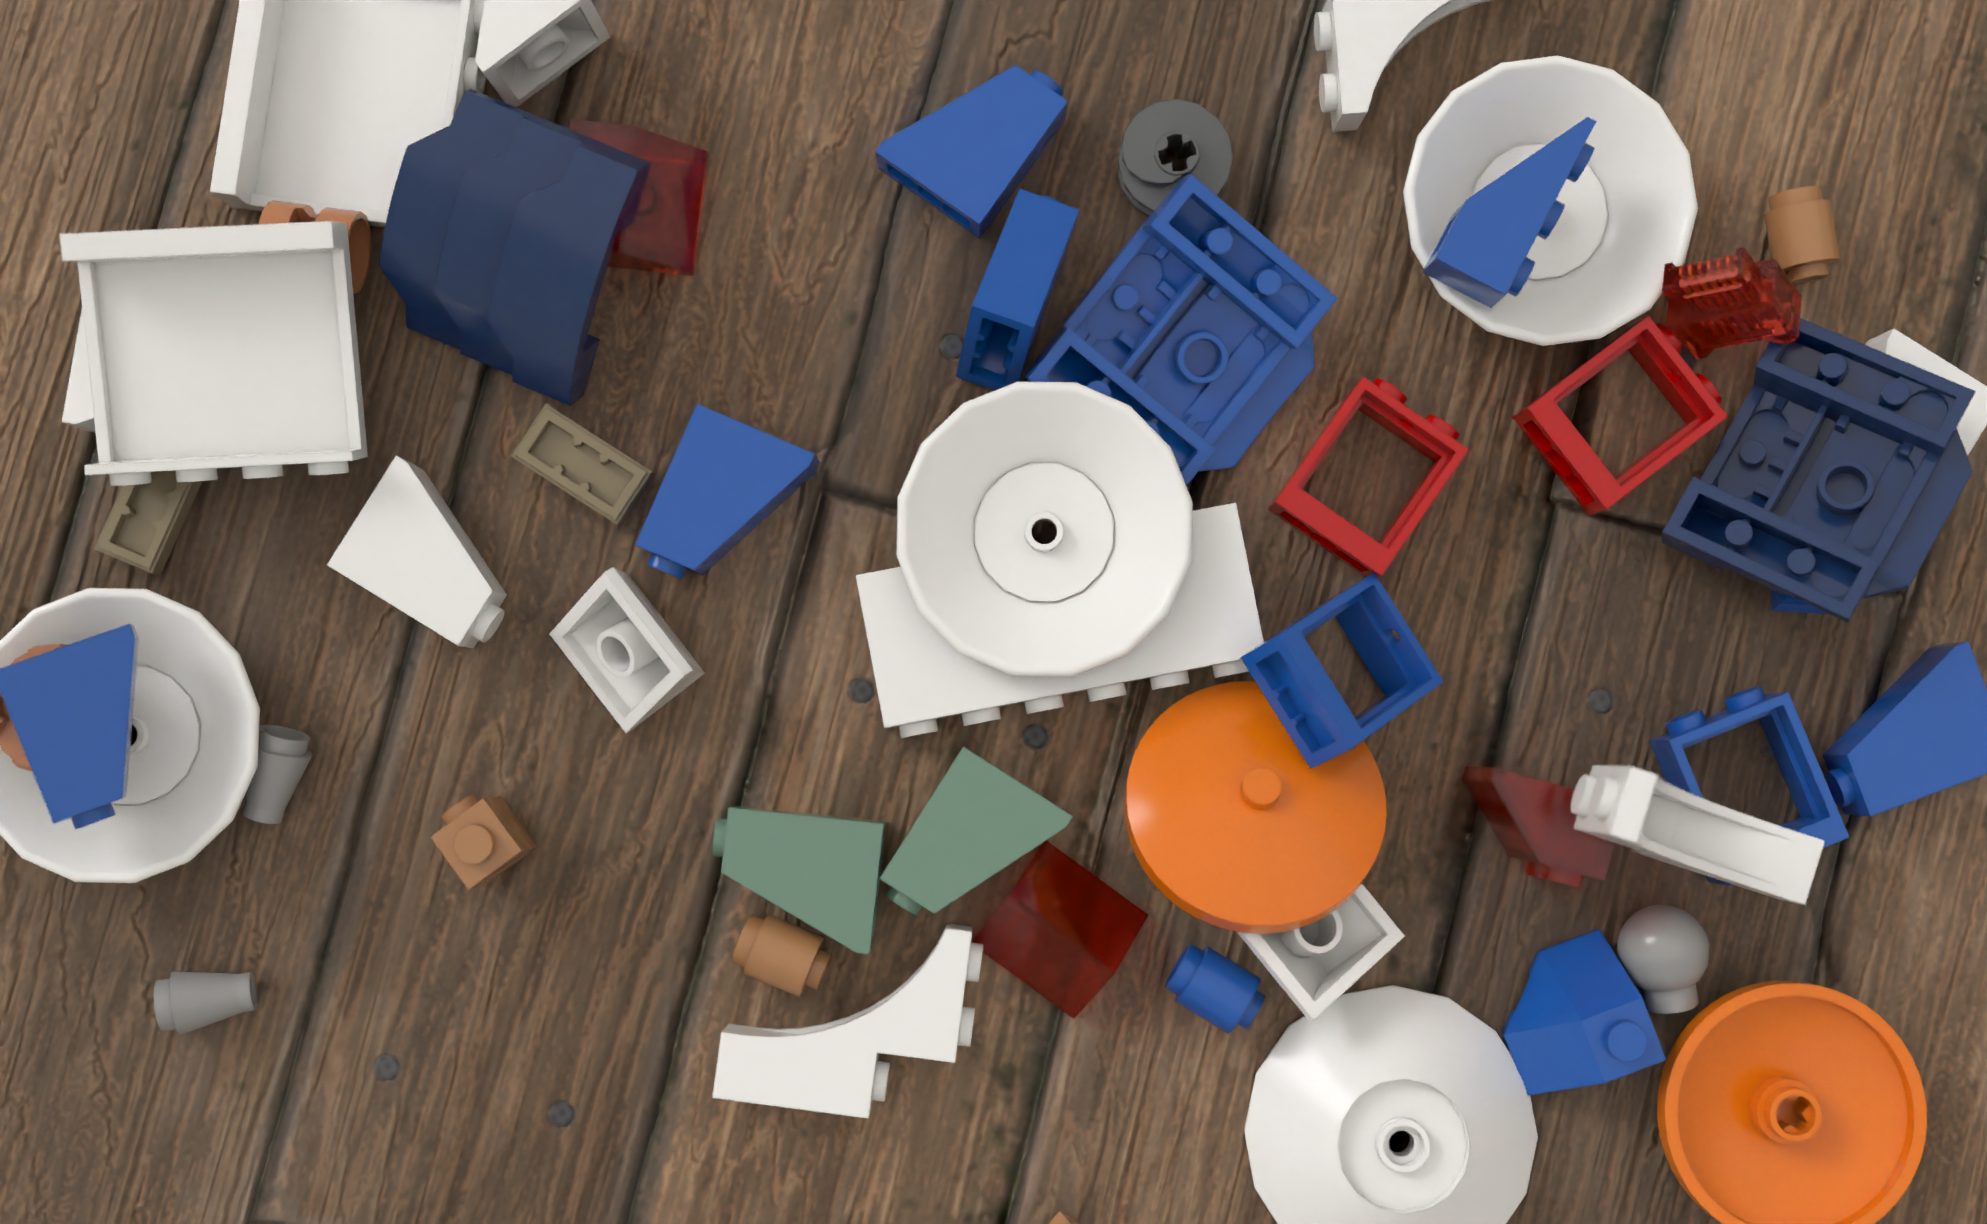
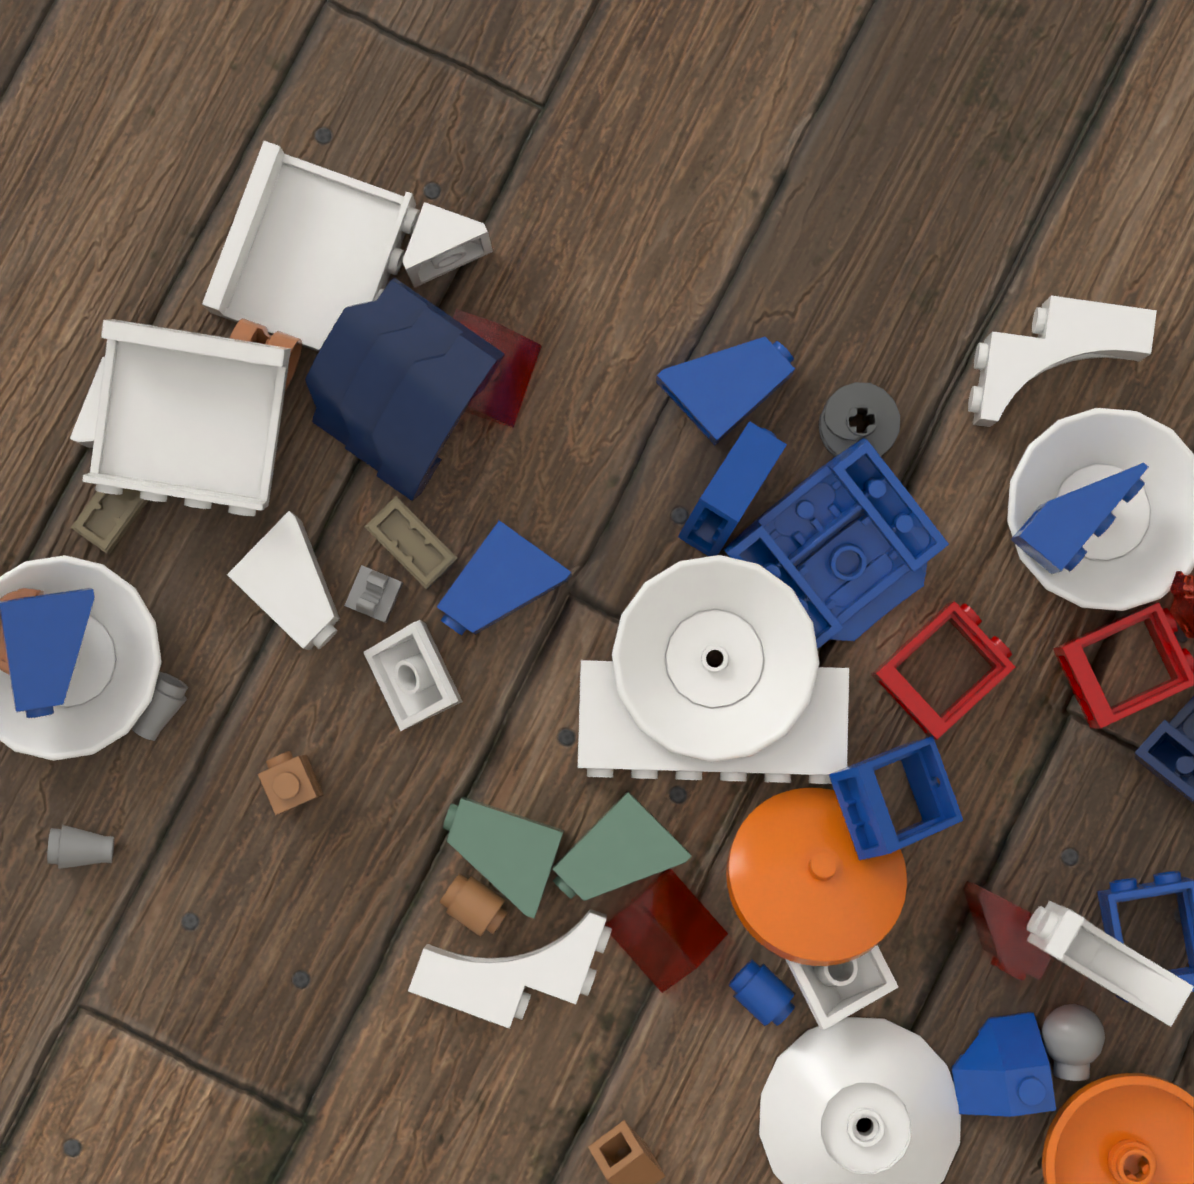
camera: 20 degrees right, 0 degrees up
(546, 549) = (374, 594): none -> light grey tile

